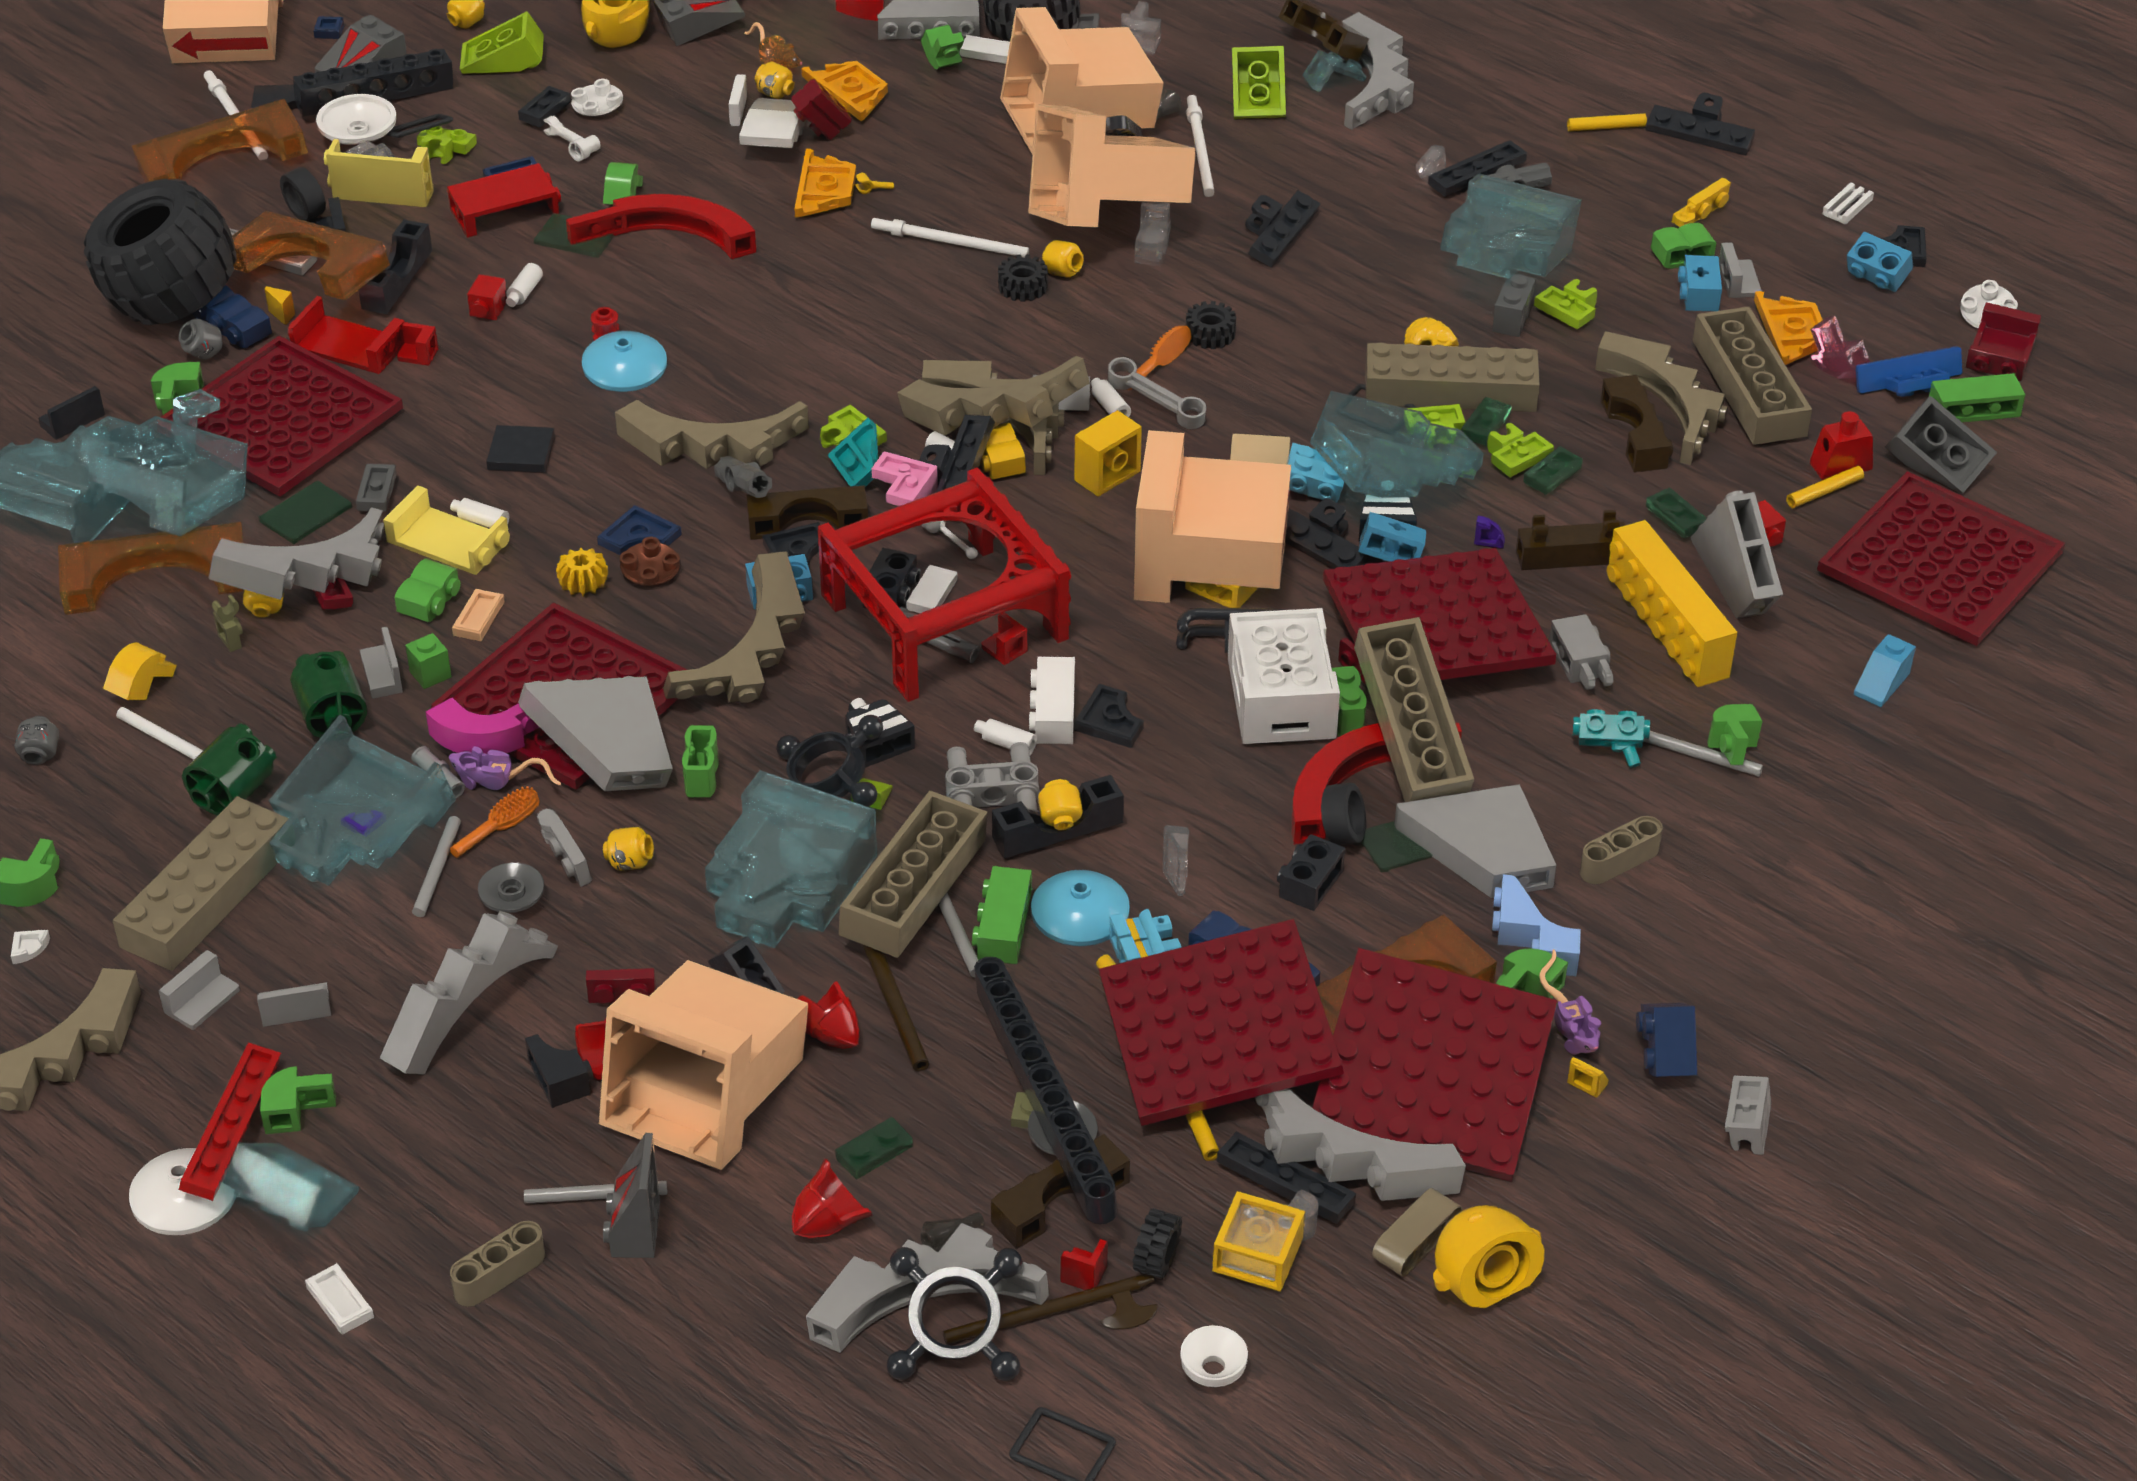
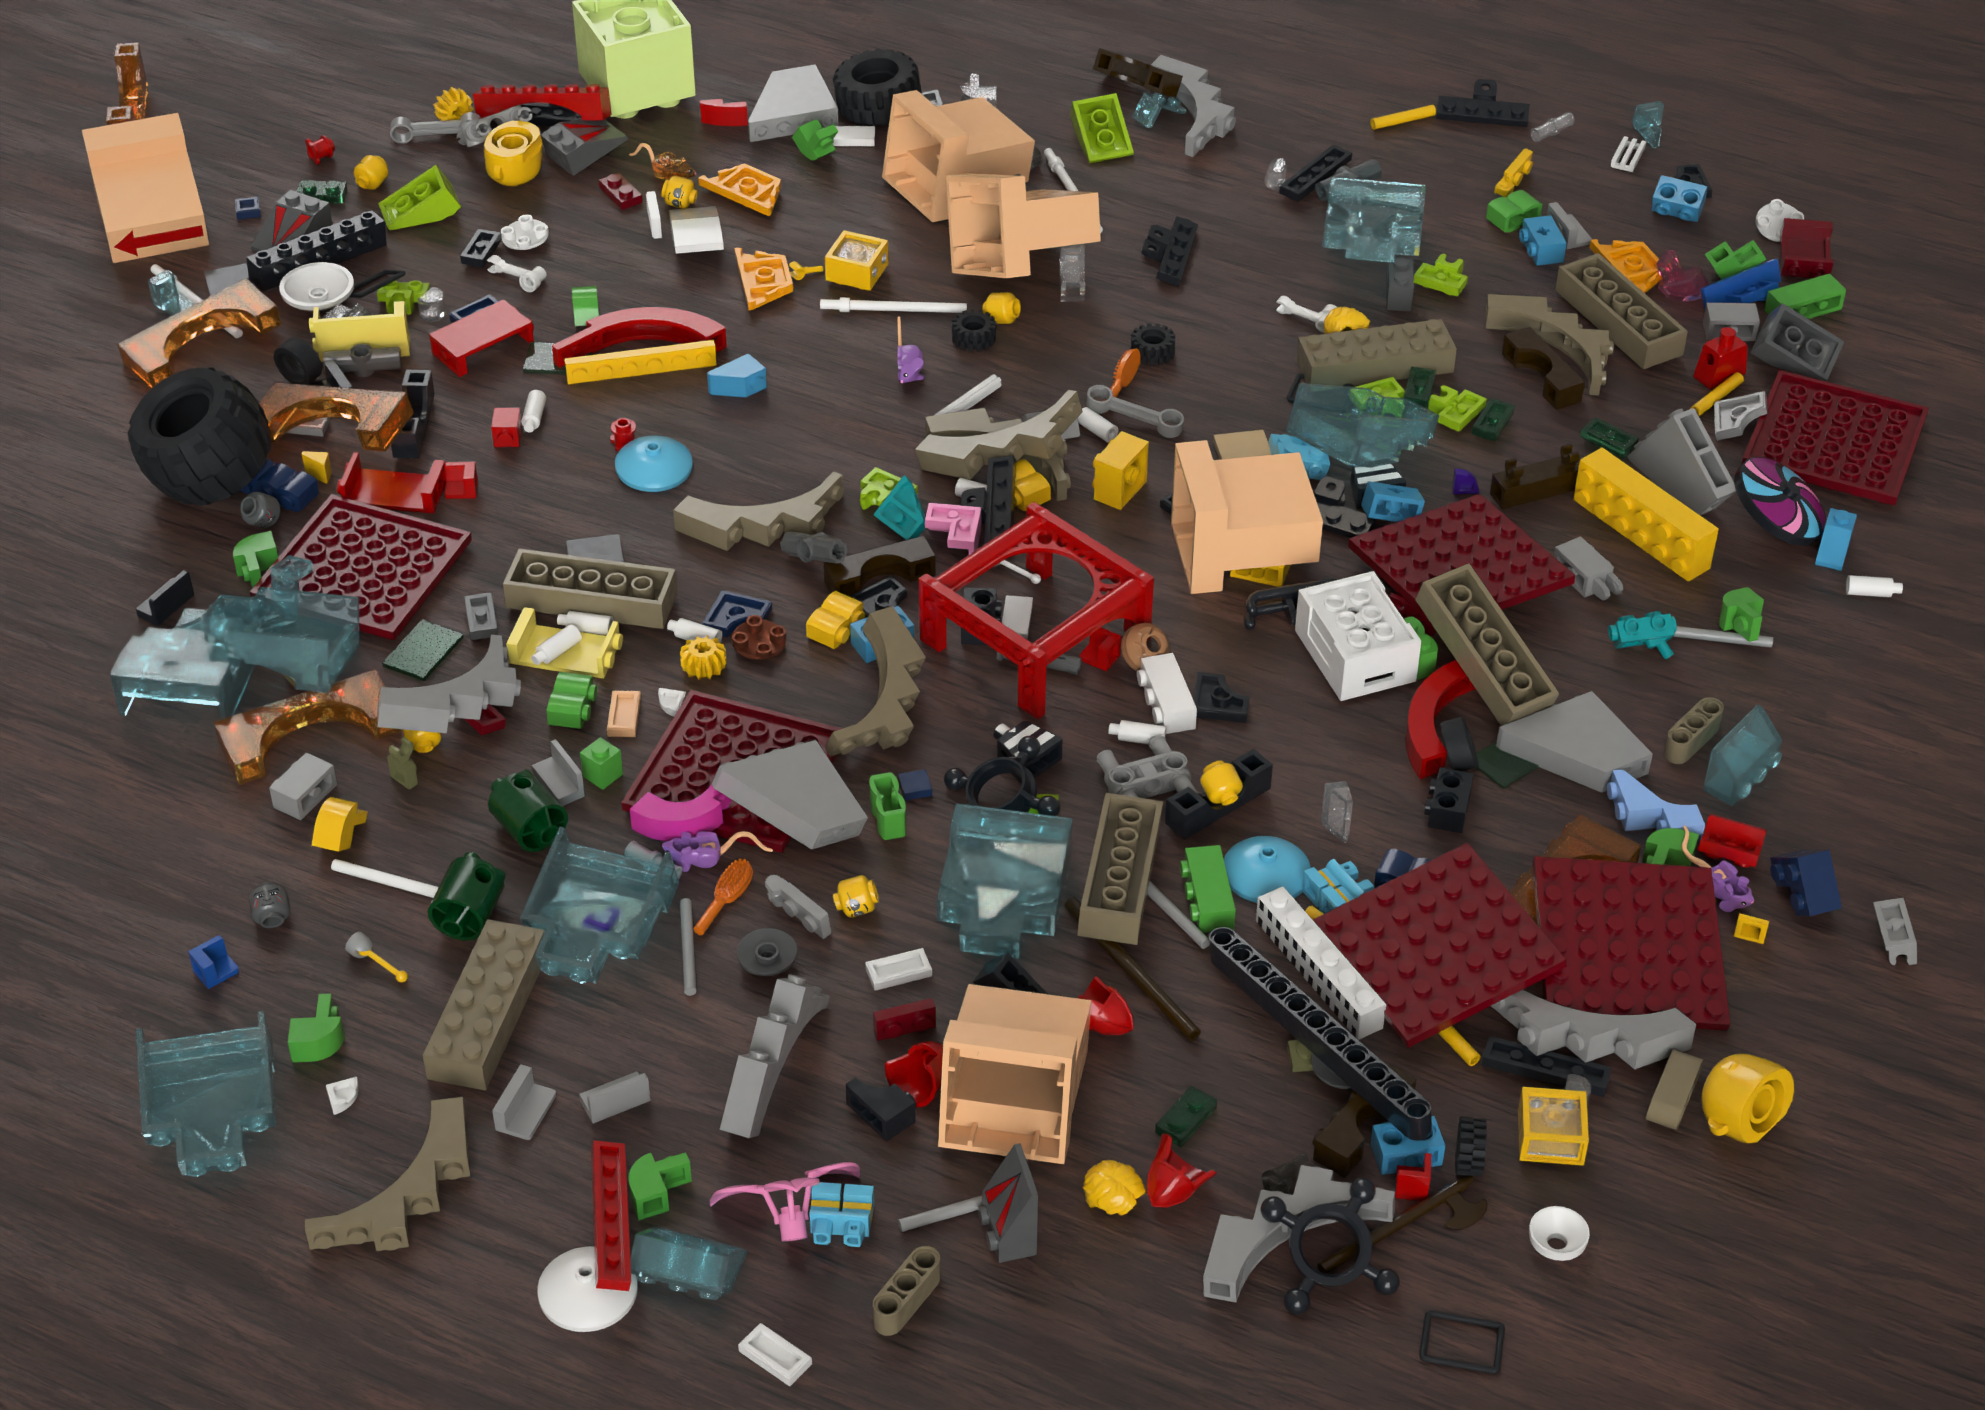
camera: 15 degrees left, 0 degrees up
(109, 800) = (360, 947): none -> hinge
(121, 625) = (303, 786): none -> light grey brick
(205, 100) = (165, 293): none -> clear light blue bracket
(374, 203) = (364, 360): none -> dark grey piece
(410, 1163) = (791, 1219): none -> bright pink plant
(411, 22) = (327, 191): none -> clear green plate
(437, 531) = (557, 645): none -> white cylinder
(467, 158) = (432, 305): none -> clear brick
(468, 1169) = (852, 1221): none -> medium azure hips
(497, 476) = (590, 585): none -> dark tan brick
(531, 608) = (671, 700): none -> white tile
(577, 538) = (688, 630): none -> white cylinder
(642, 933) = (898, 969): none -> white tile
(655, 252) = (640, 362): none -> yellow plate
(716, 69) = (620, 191): none -> dark red plate
(727, 558) = (832, 620): none -> yellow brick
(745, 745) = (915, 784): none -> dark blue tile
(748, 286) = (737, 378): none -> dark azure slope
(759, 1203) = (1113, 1187): none -> yellow hair
(820, 109) = (737, 211): dark red brick -> none
(927, 182) = (856, 260): none -> yellow piece
(937, 298) = (909, 360): none -> medium lavender animal
(992, 347) = (973, 396): none -> white axle
(1036, 641) = (1135, 647): none -> medium nougat piece
(1079, 1232) = (1395, 1149): none -> dark azure brick
(1087, 1017) = (1320, 963): none -> white brick
(1381, 310) = (1289, 307): none -> white brick
(1607, 978) = (1732, 841): none -> red bracket
(1659, 888) = (1743, 757): none -> clear light blue slope
(1772, 159) = (1552, 126): none -> clear pin
(1832, 615) = (1780, 501): none -> dish
(1836, 510) = (1736, 413): none -> light grey tile
(1879, 407) = (1739, 316): none -> light grey brick
(1887, 164) = (1646, 121): none -> clear light blue bracket
(1900, 341) = (1729, 263): none -> bright green brick
(1905, 730) = (1872, 586): none -> white cylinder

